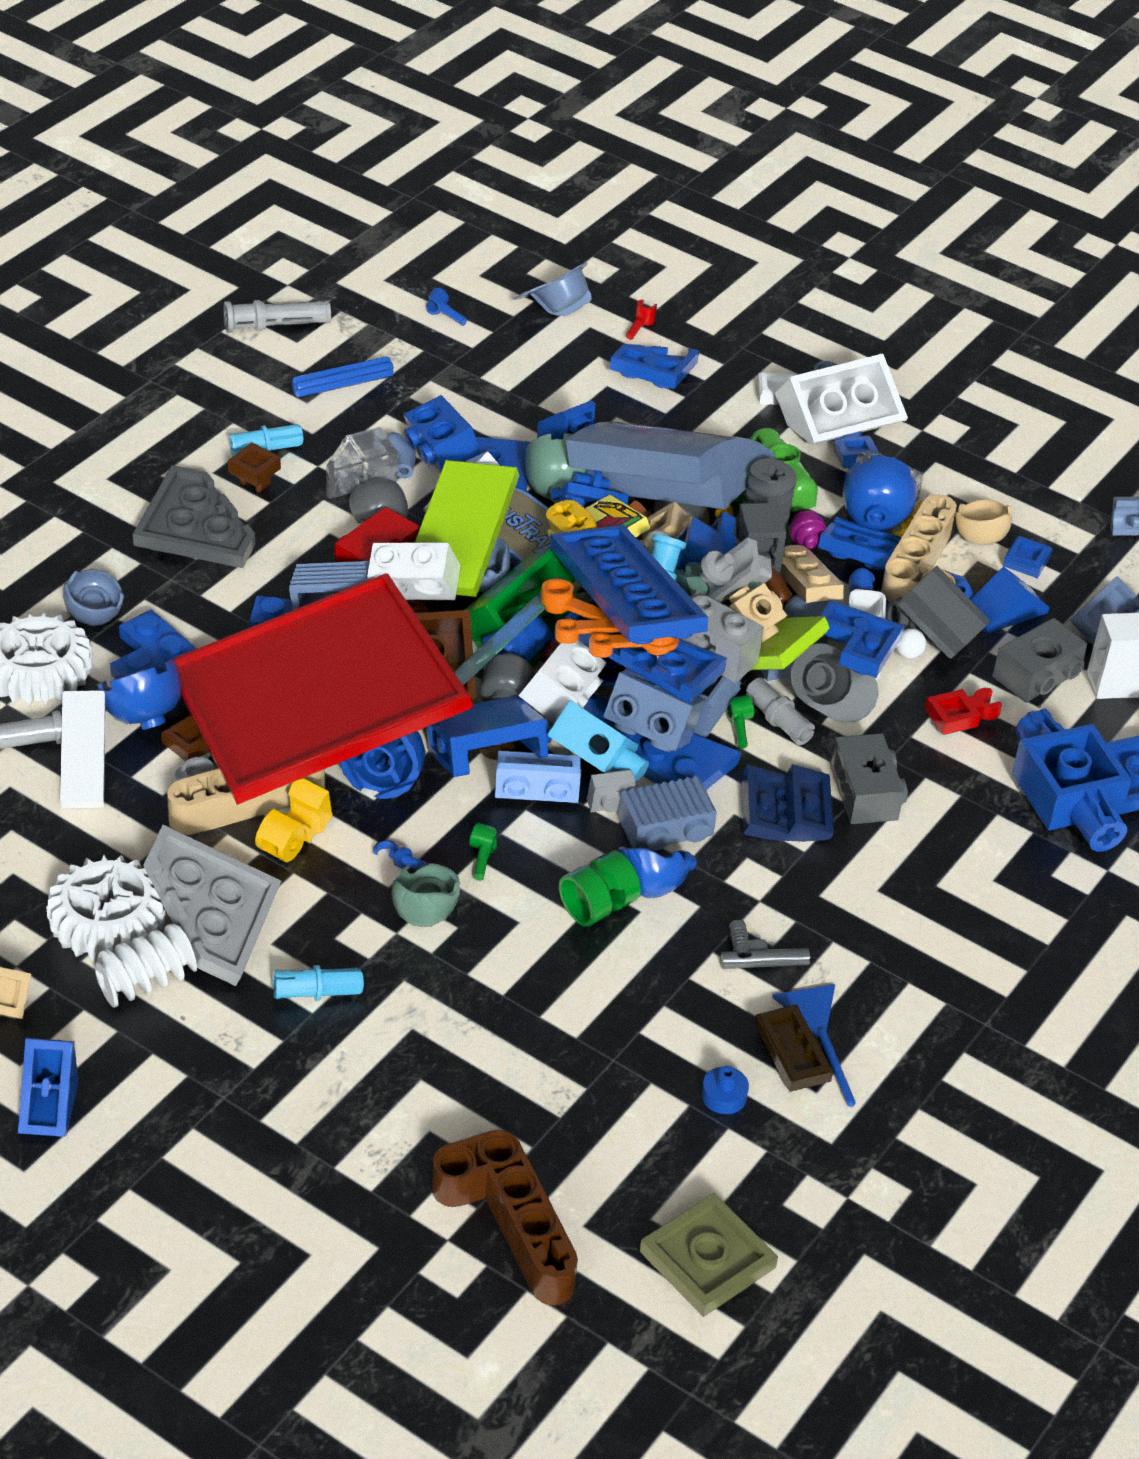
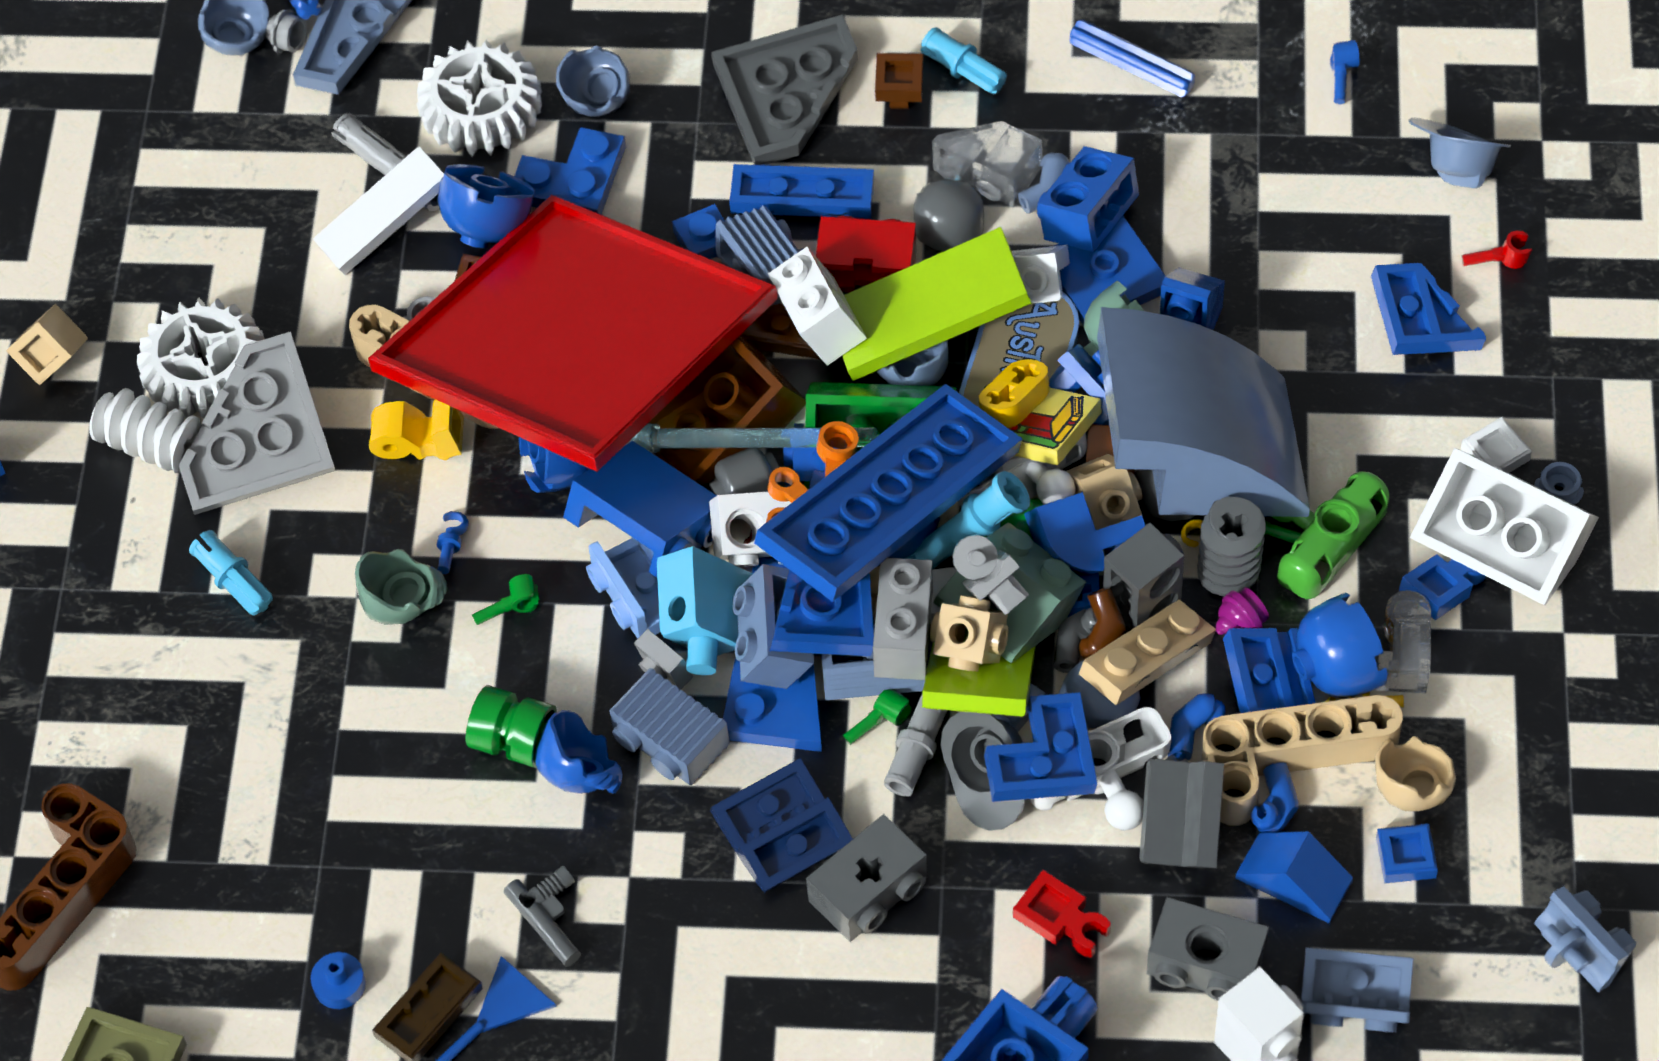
camera: 65 degrees right, 15 degrees up
(298, 545) = (802, 190): none -> blue plate

